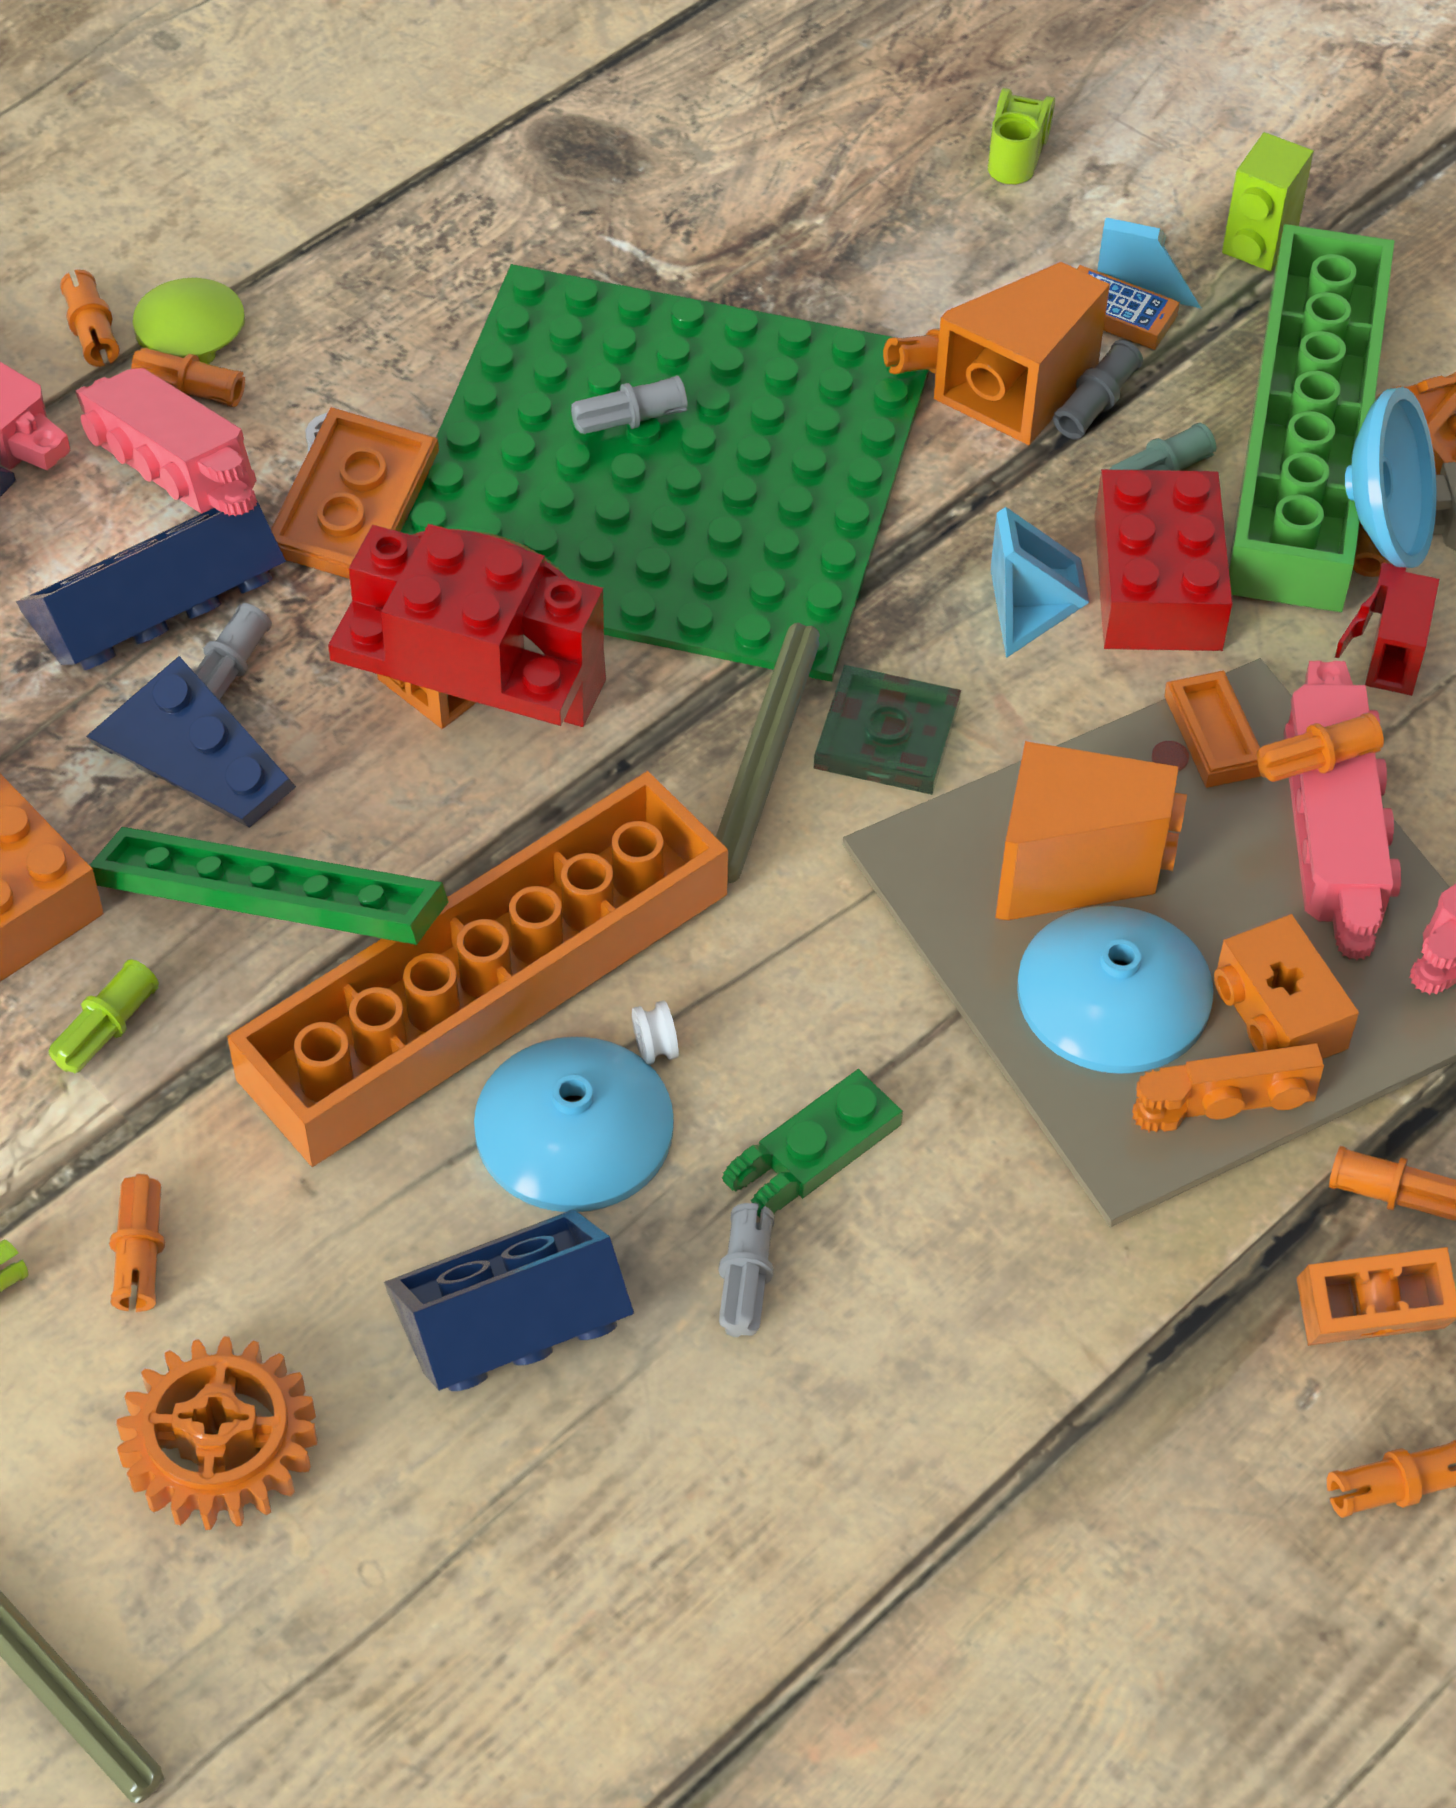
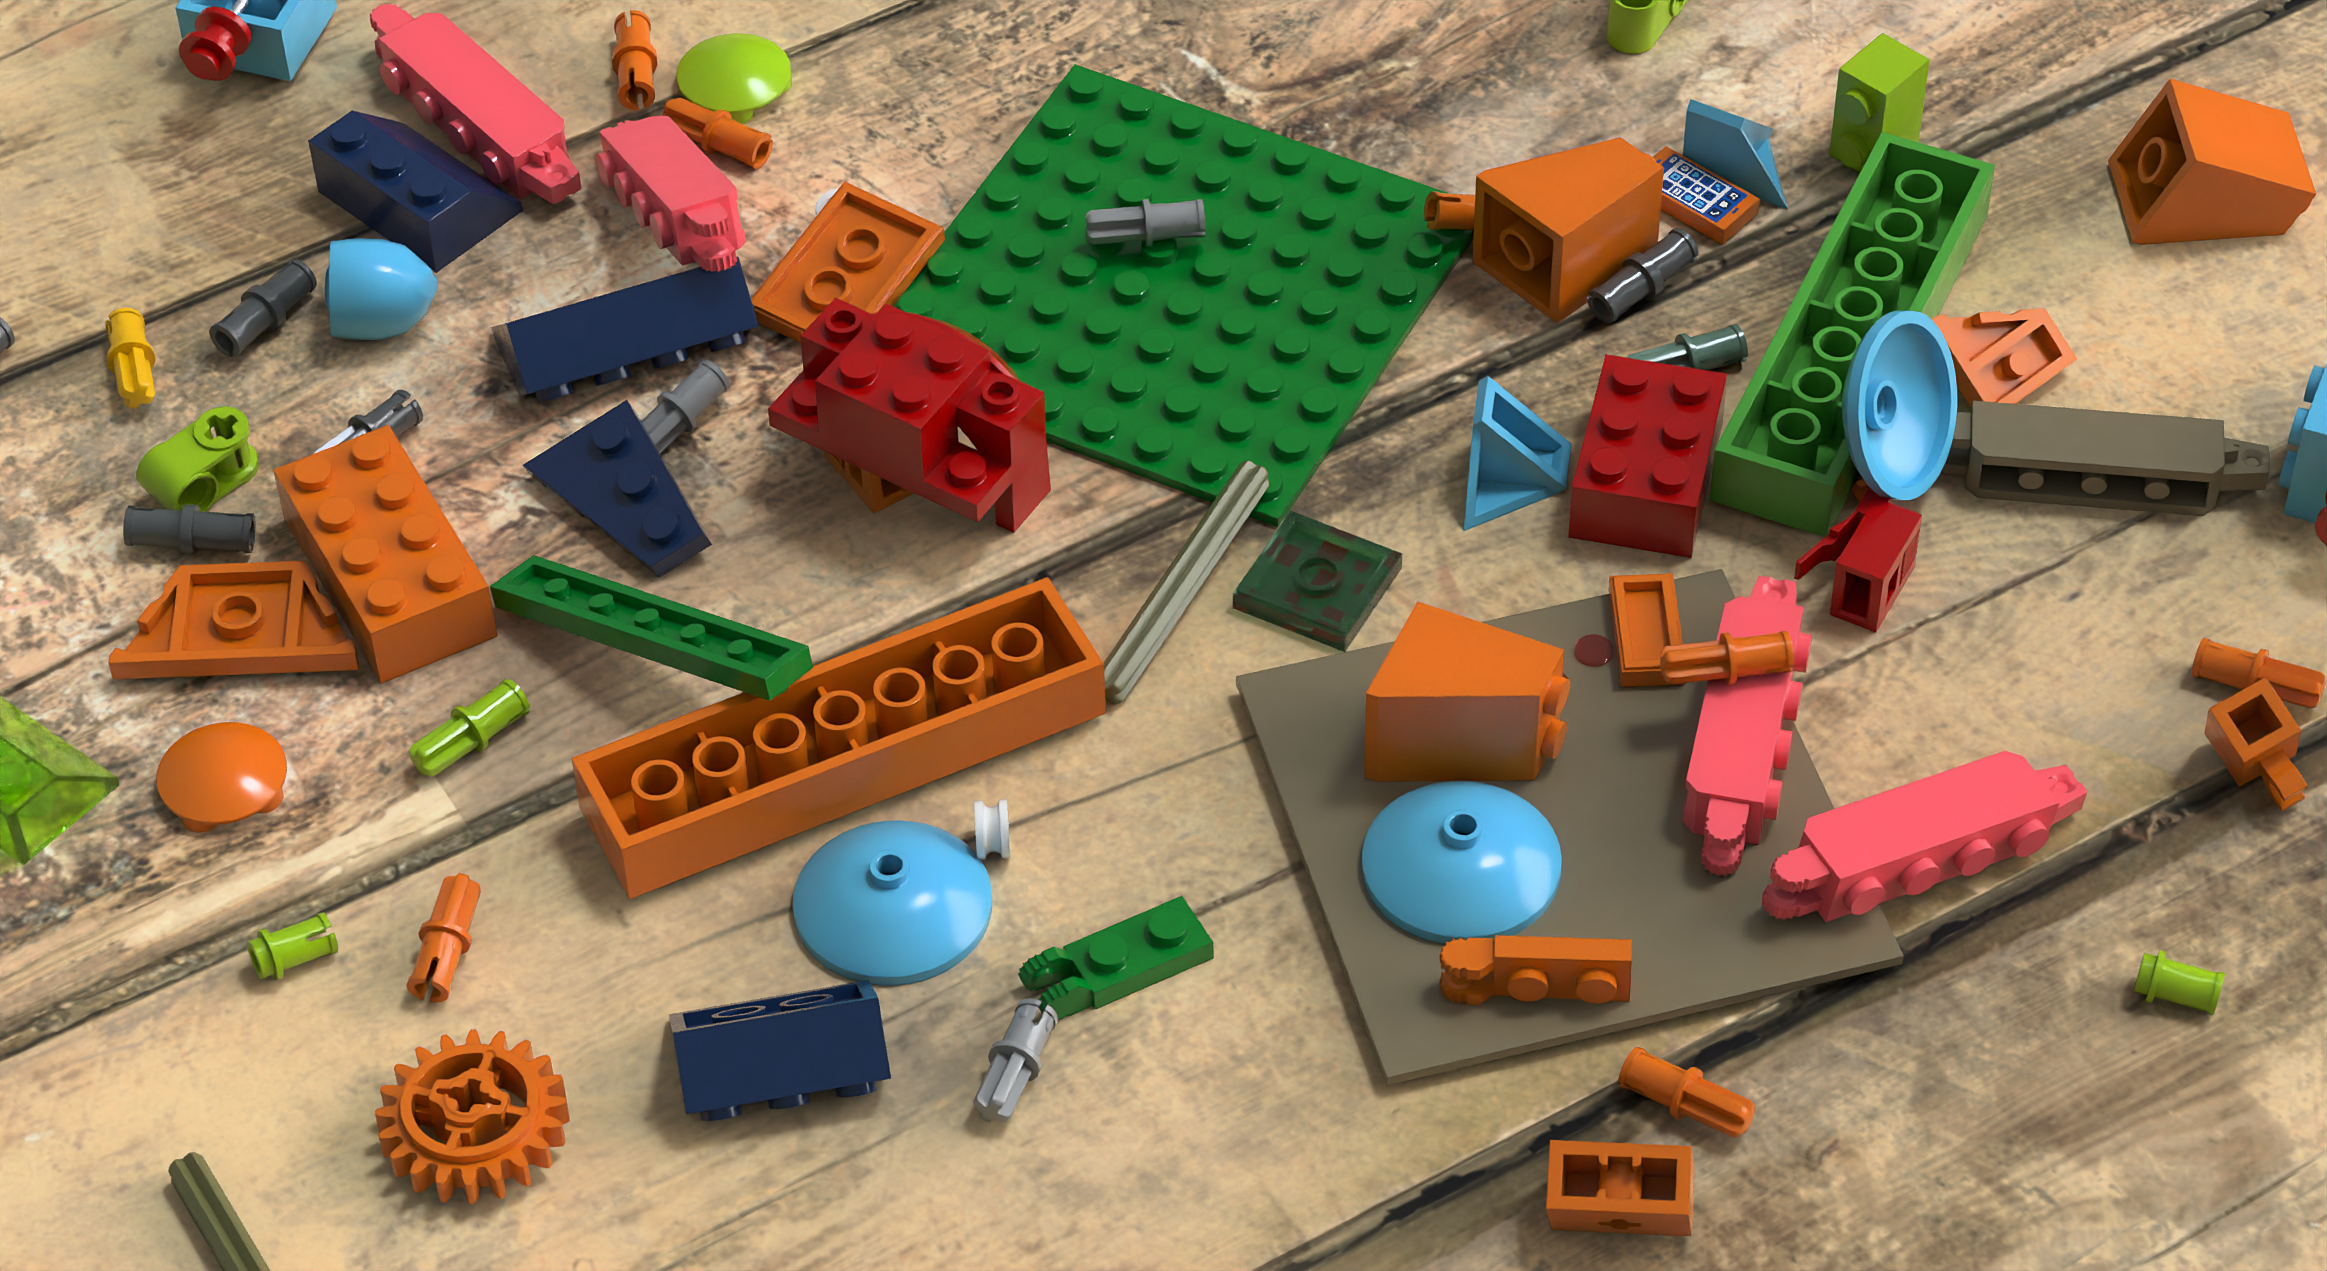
camera: 15 degrees right, 5 degrees down
(1284, 989) = (1624, 888): orange brick -> none

